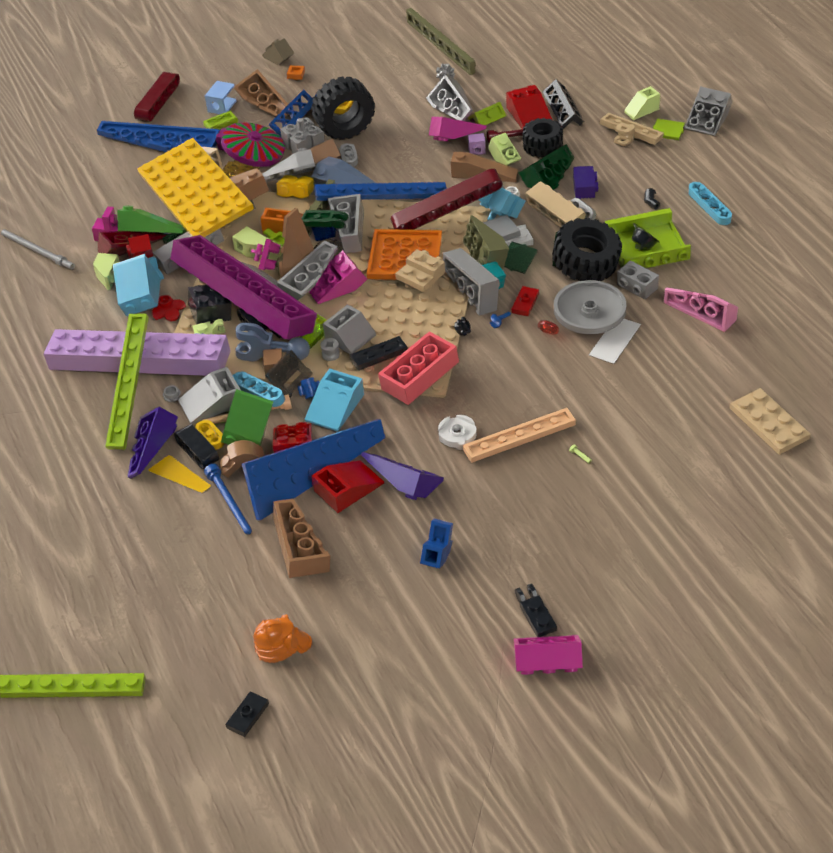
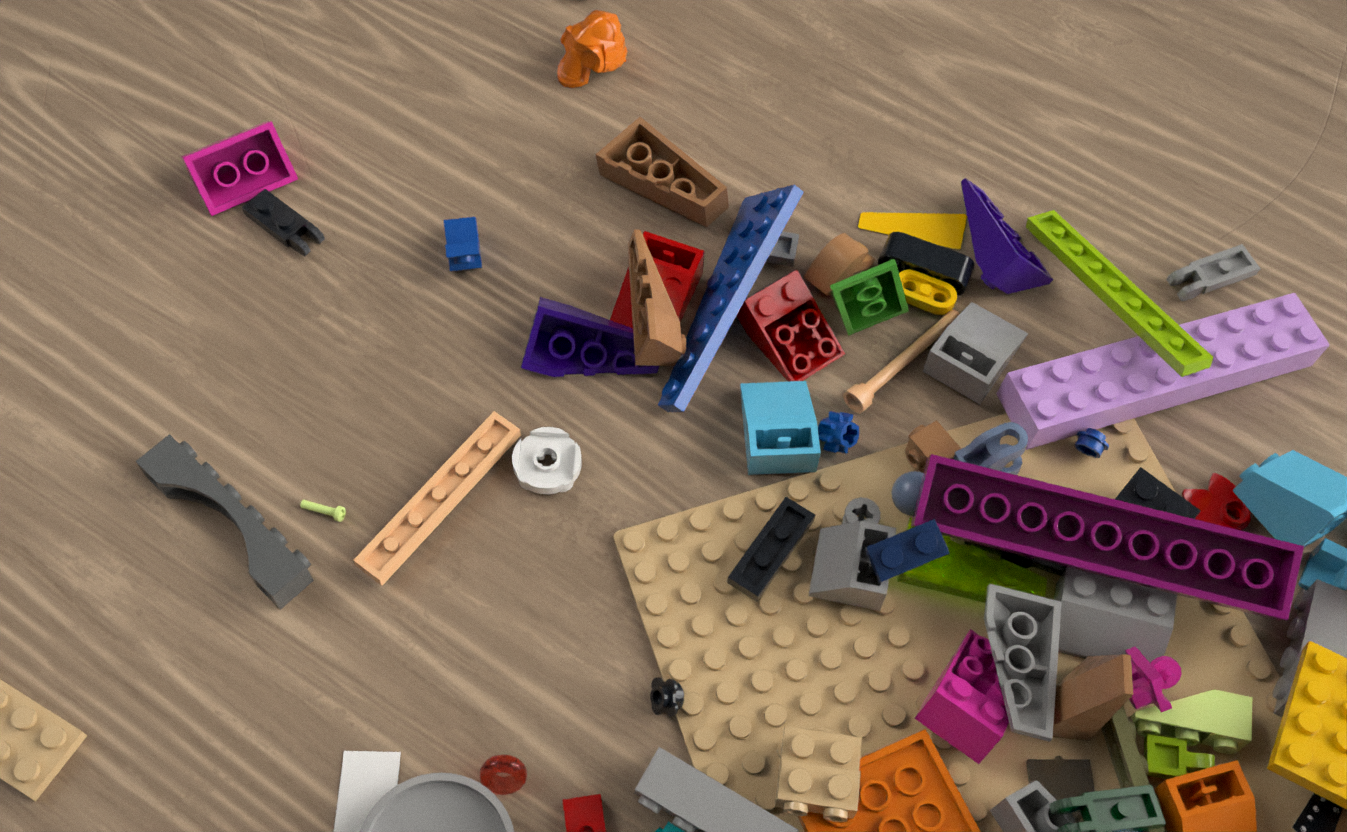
camera: 145 degrees right, 15 degrees up
(61, 390) = (1214, 272): none -> light grey hinge
(171, 393) = (1050, 333): light grey plate -> none
(207, 328) = (1106, 475): yellowish green plate -> none
(214, 474) = (861, 233): blue piece -> none
(259, 386) = (919, 388): medium azure beam -> none
(284, 369) = (897, 435): clear smoke plate -> none
(328, 306) = (907, 550): none -> dark blue plate
(364, 450) = (654, 319): none -> medium nougat wedge
(418, 368) = (673, 531): coral brick -> none
(496, 320) = (618, 751): blue hand -> none
(648, 488) = (271, 564): none -> dark grey arch

